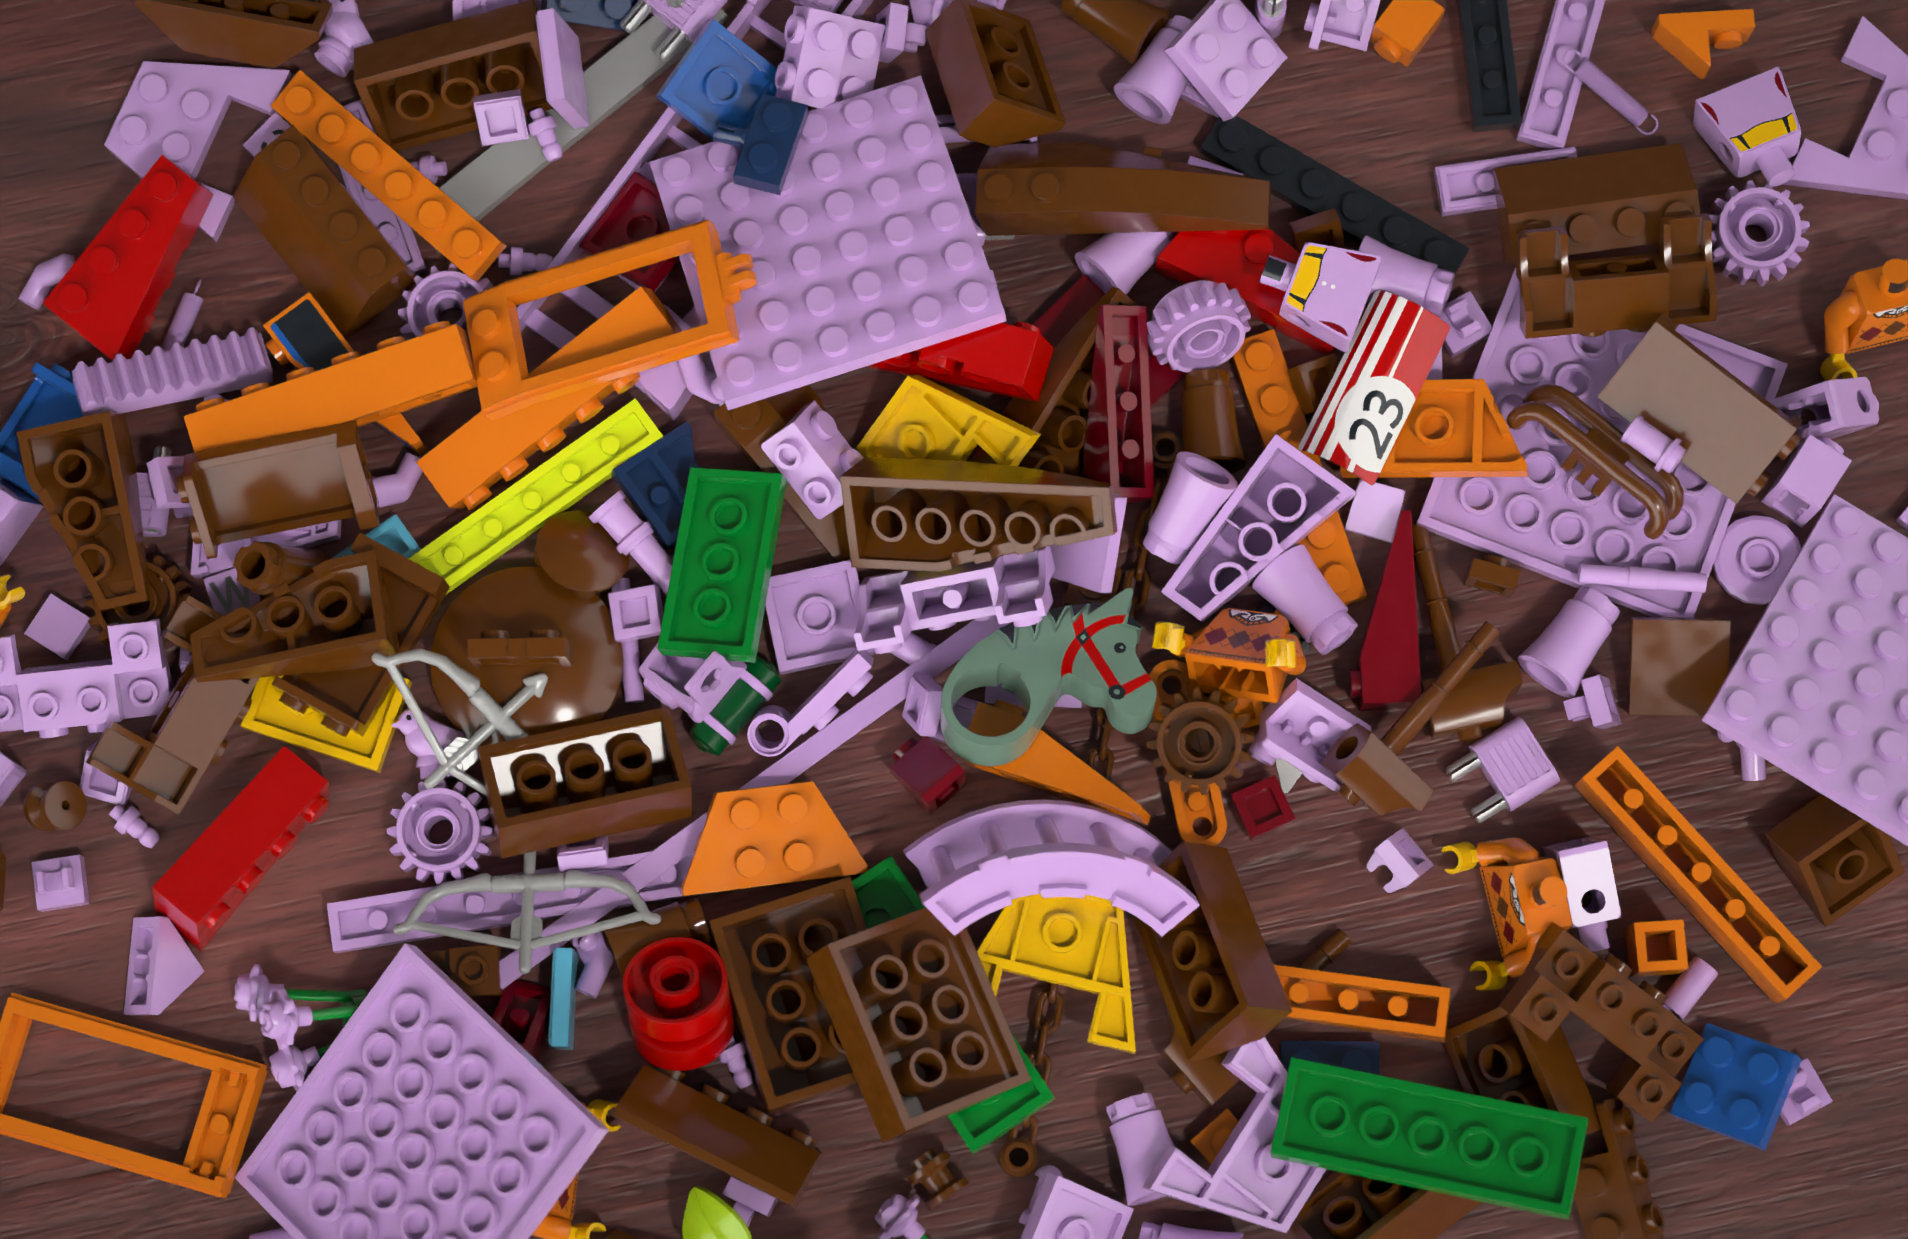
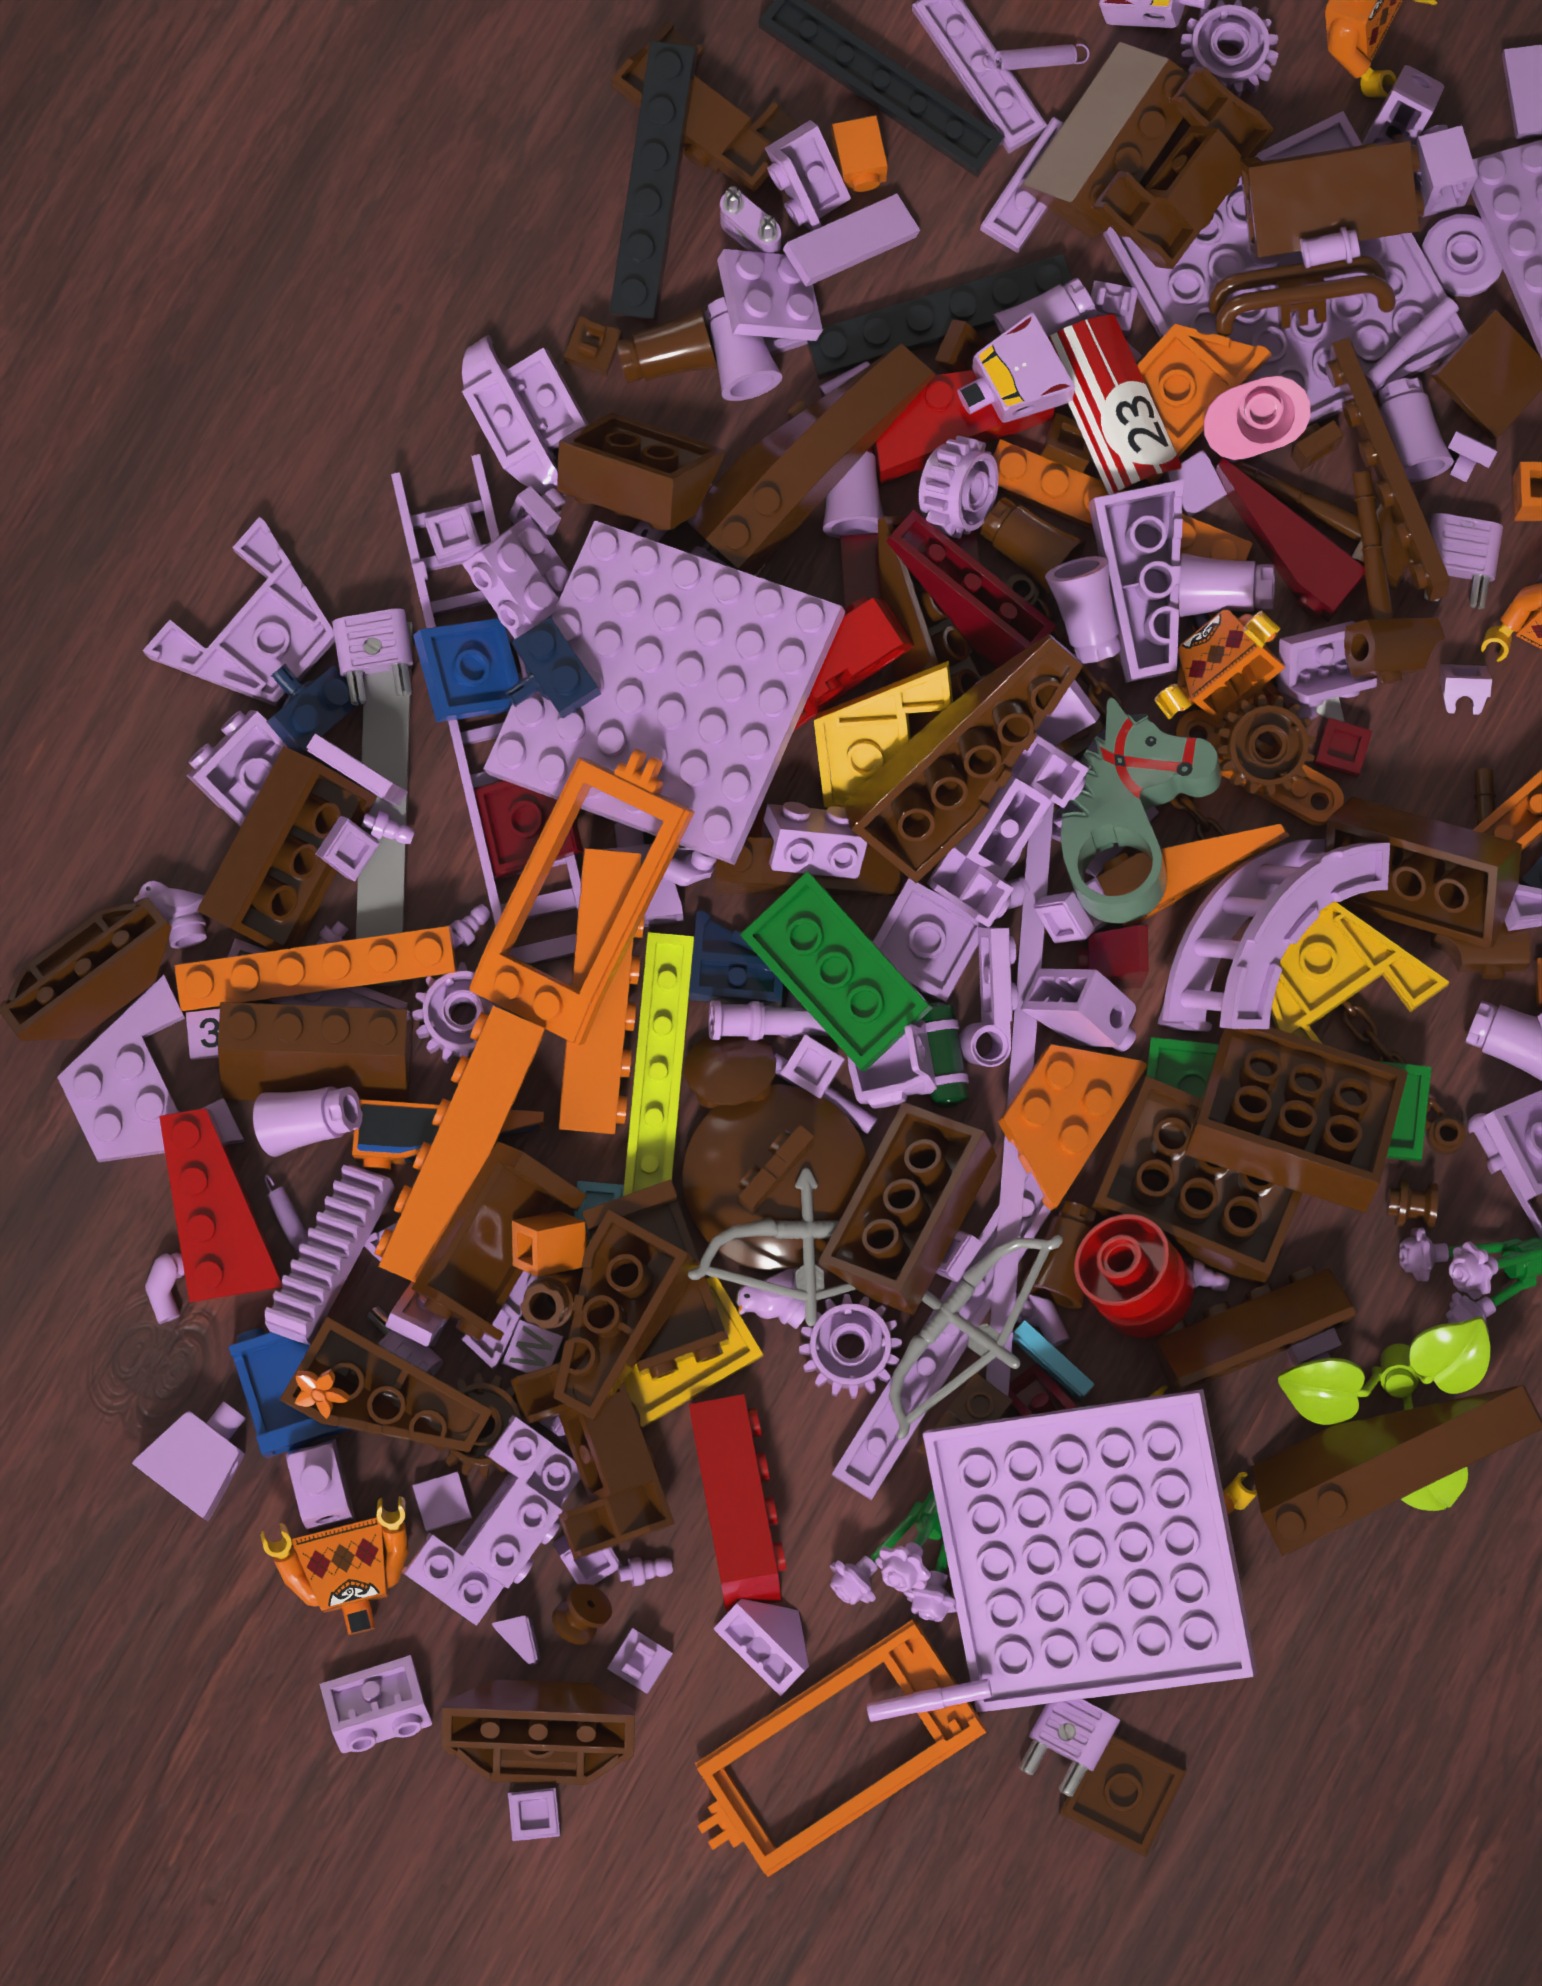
camera: 55 degrees left, 0 degrees up
(43, 453) = (319, 1391): none -> orange plant
(208, 1131) = (929, 1700): none -> lavender piece
(257, 262) = (304, 1117): none -> lavender plant
(315, 529) = (548, 1243): none -> orange brick
(399, 486) = (556, 1152): lavender arm -> none
(862, 781) = (1082, 1007): none -> lavender torso
(1329, 78) = (851, 240): none -> lavender tile
(1462, 506) = (1256, 417): none -> bright pink piece
(1503, 662) = (1393, 485): none -> reddish brown plate

